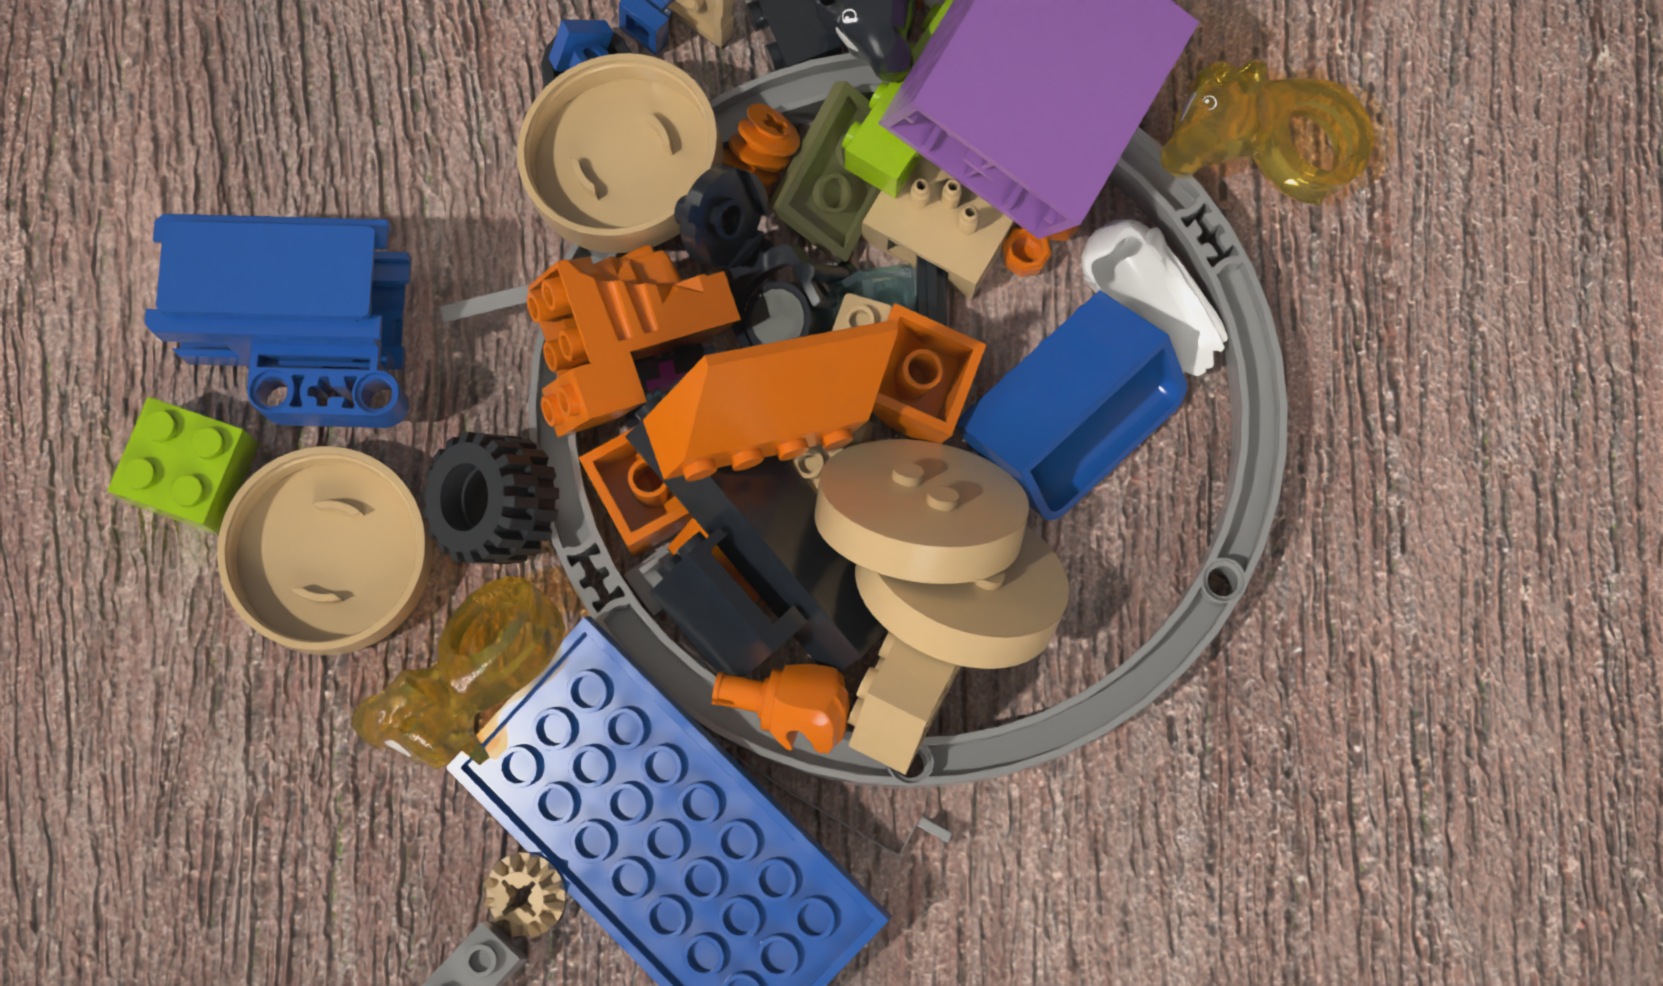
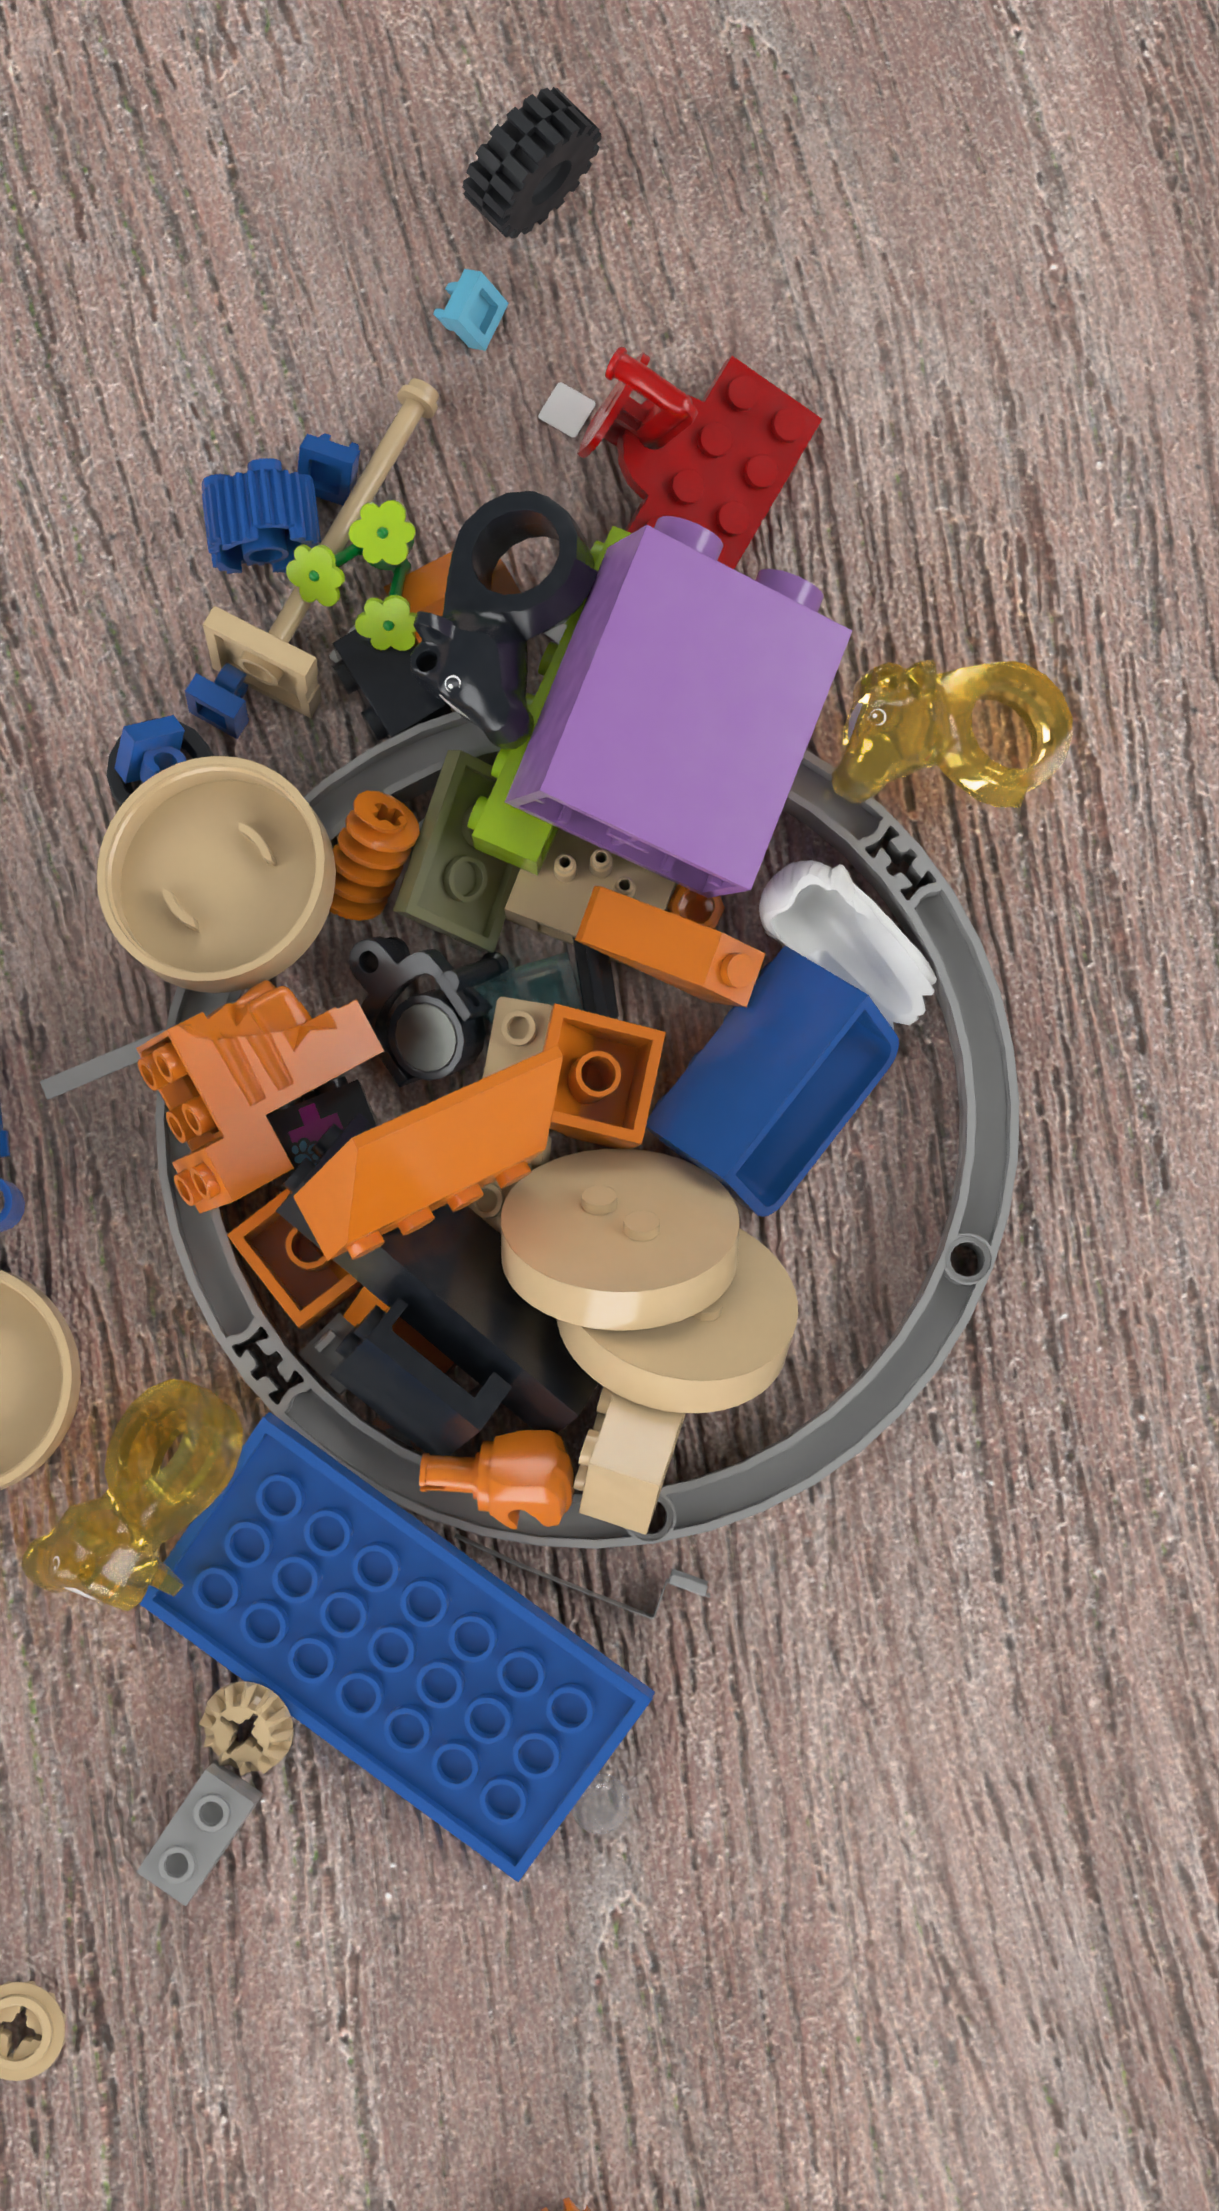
camera: 10 degrees left, 5 degrees up
(490, 498) = (135, 1296): black tyre -> none
(702, 213) = (318, 939): black plate -> none
(1002, 274) = (670, 948): none -> orange slope

